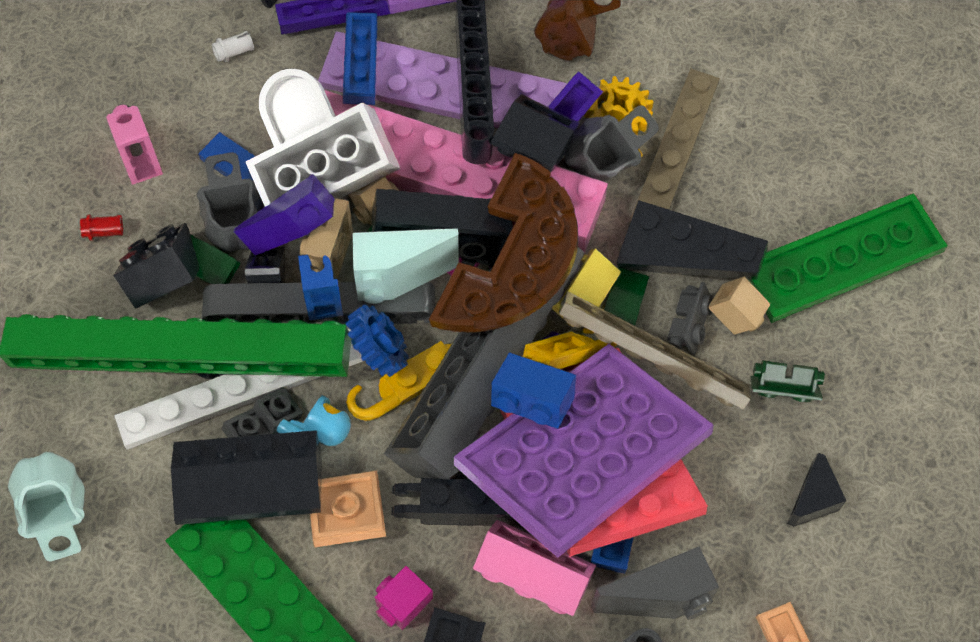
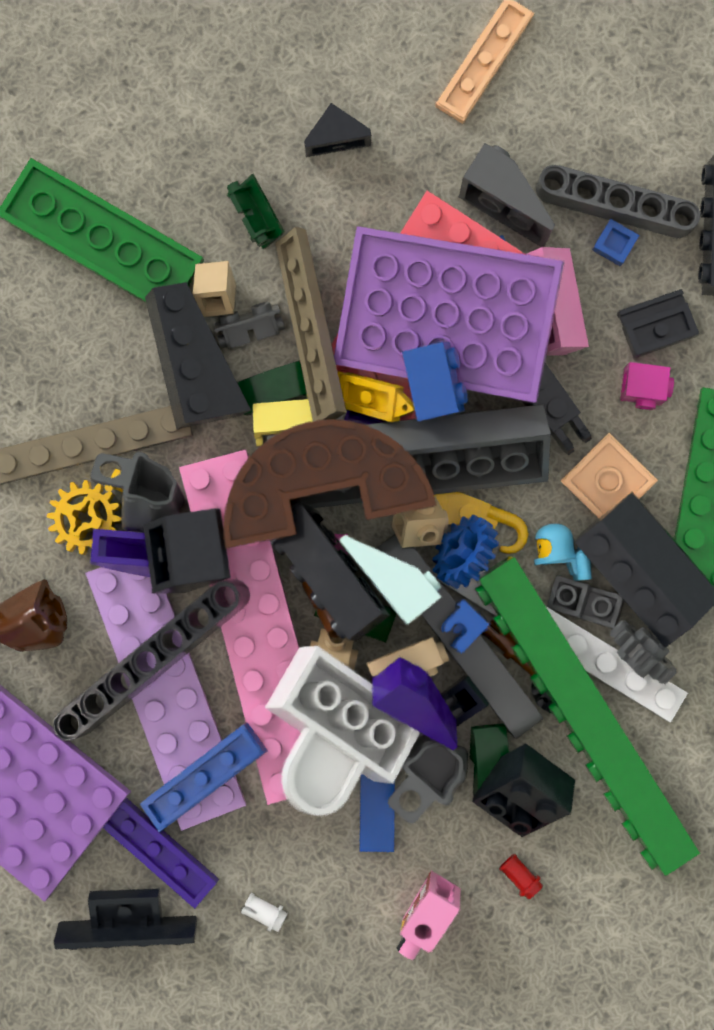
camera: 125 degrees left, 20 degrees up
(184, 420) = (643, 652): none -> dark grey gear
(418, 328) = (420, 526): none -> tan brick

